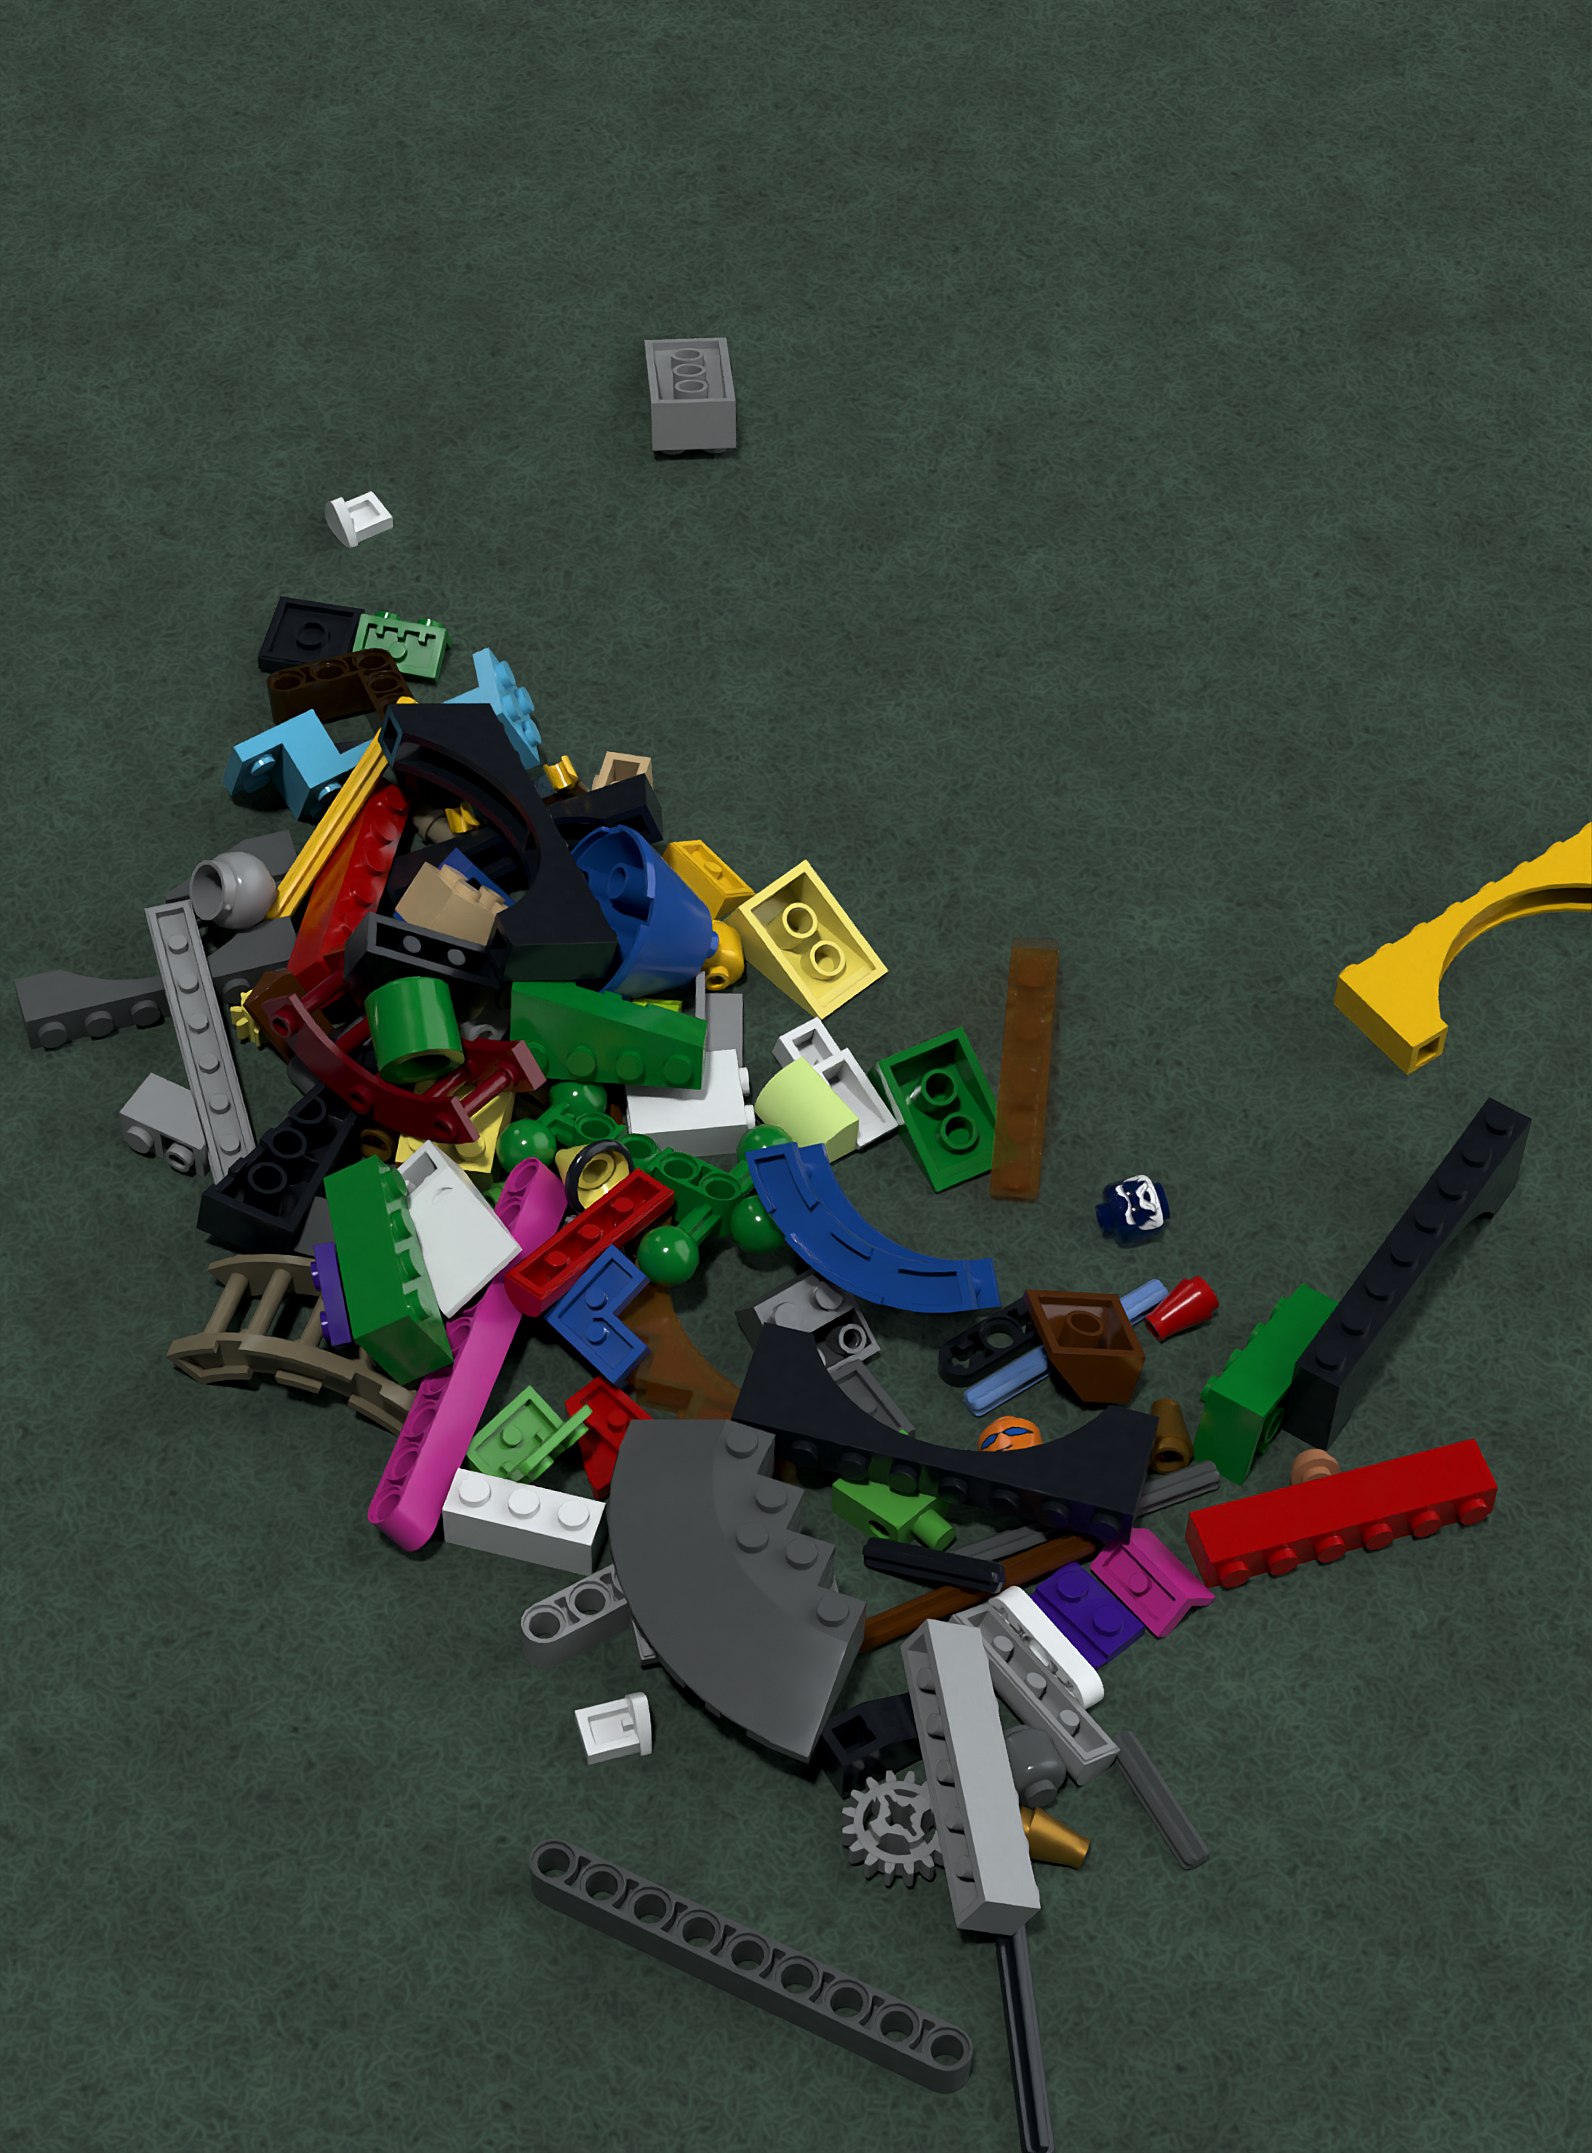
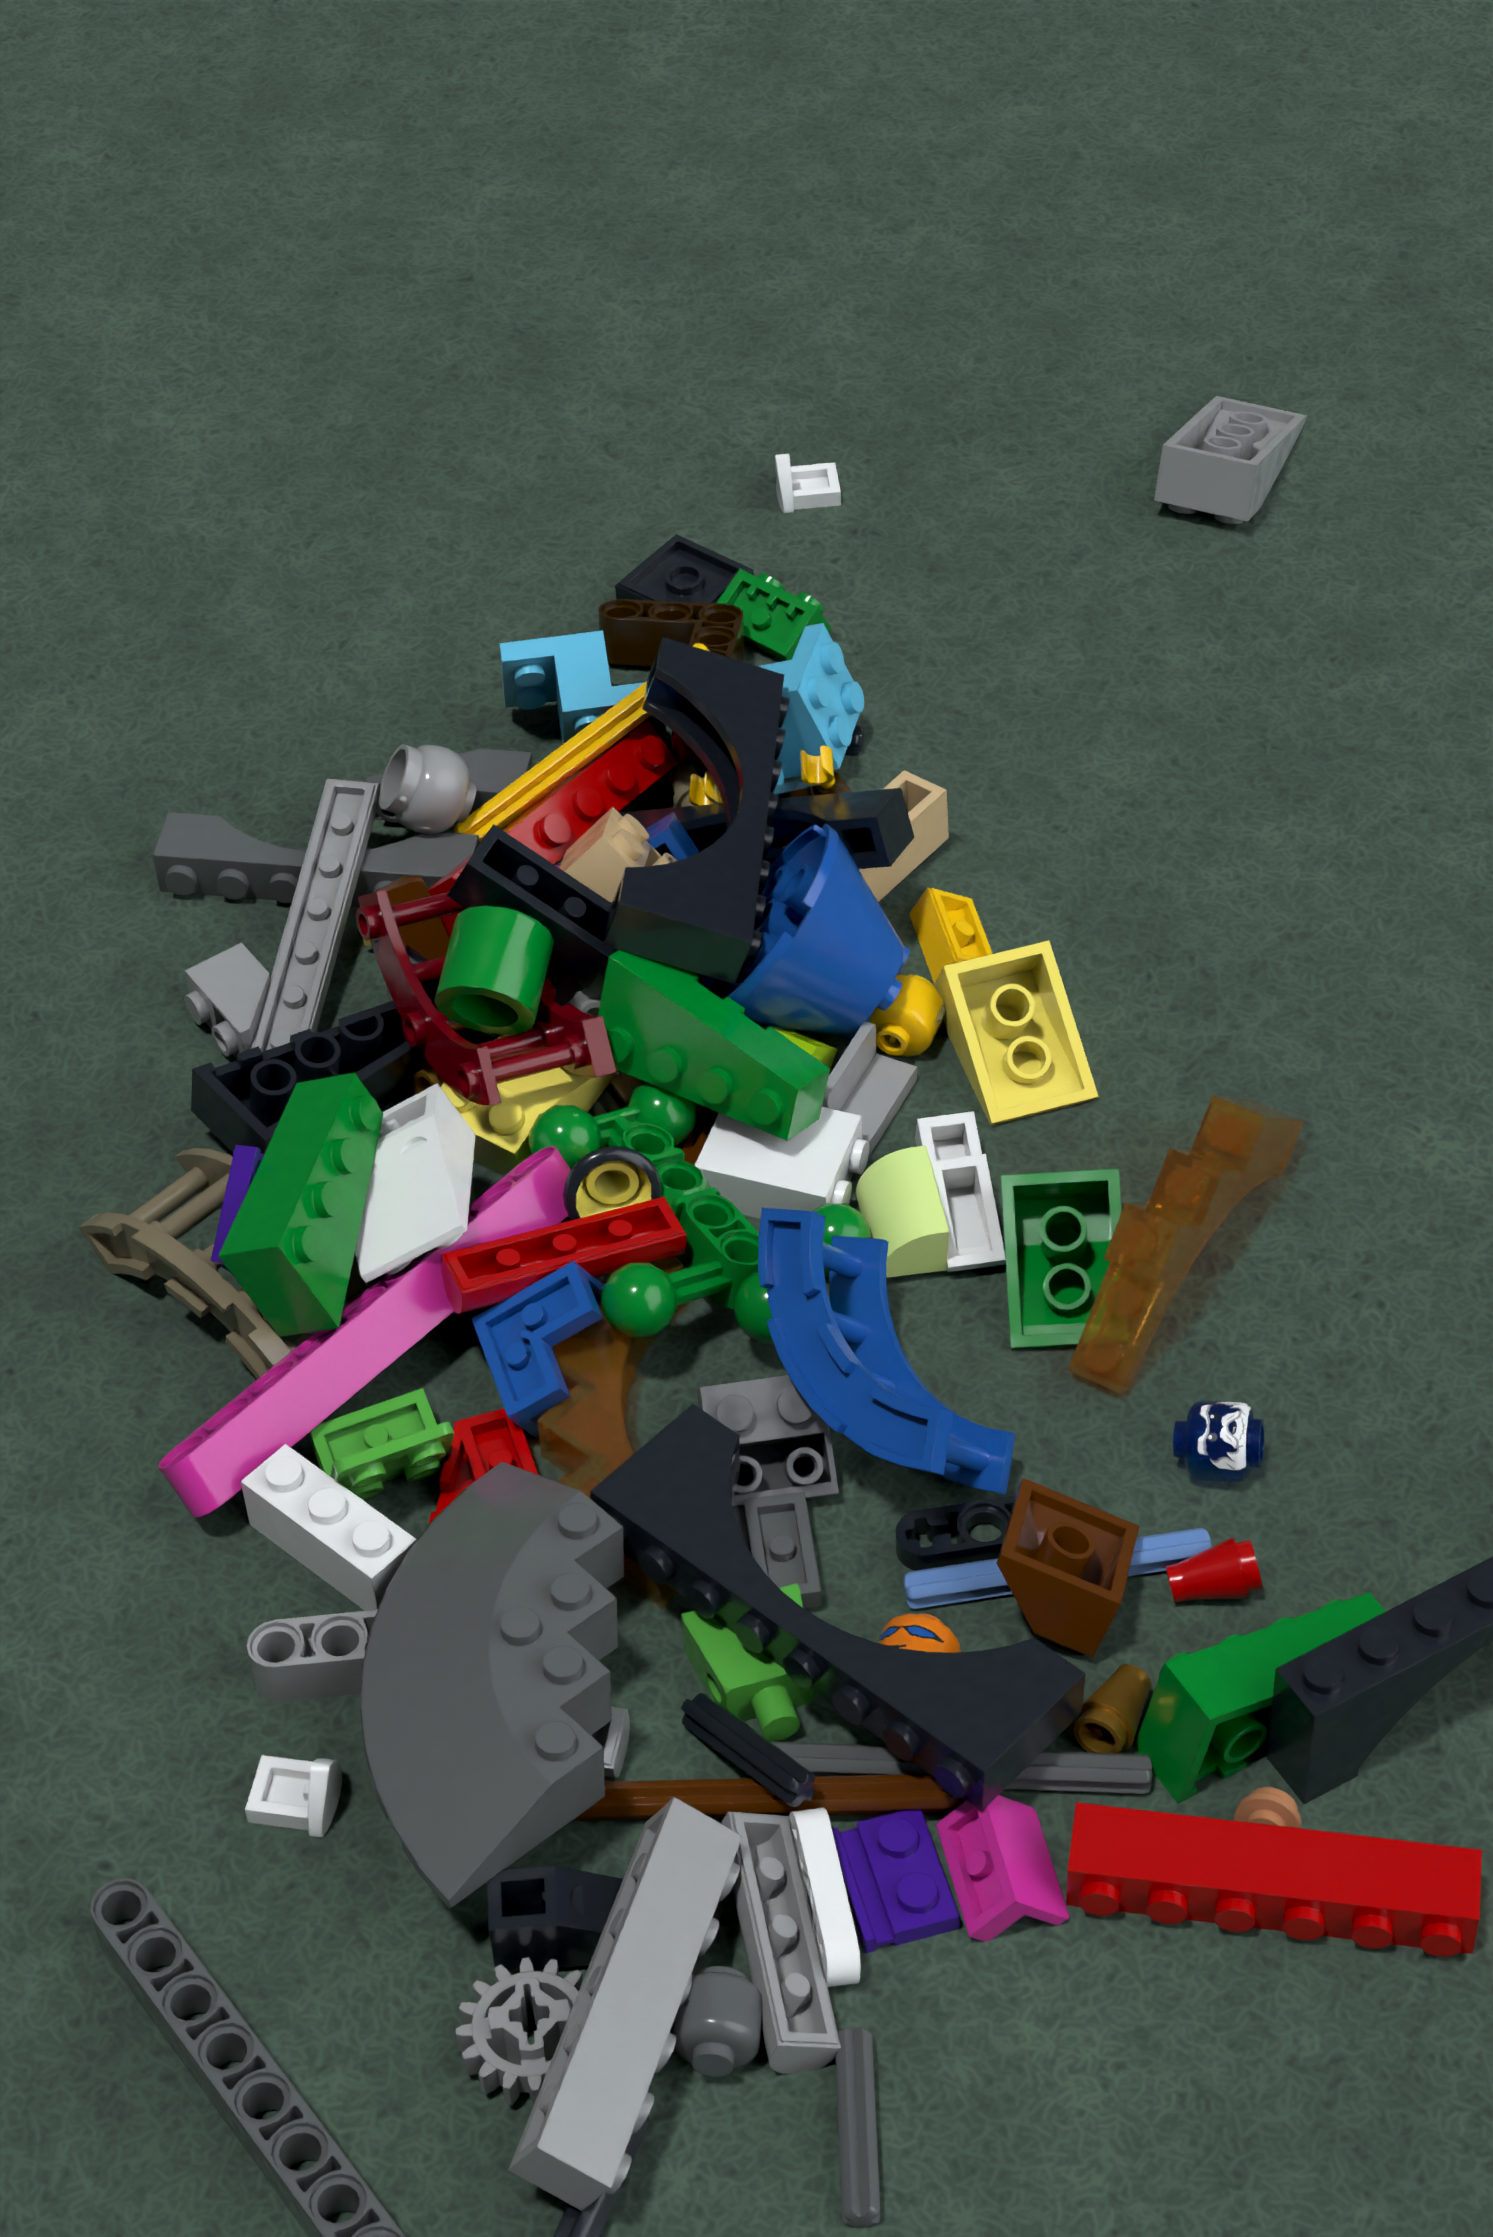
camera: 30 degrees right, 5 degrees down
(1051, 1839) = (693, 2115): pearl gold cone -> none

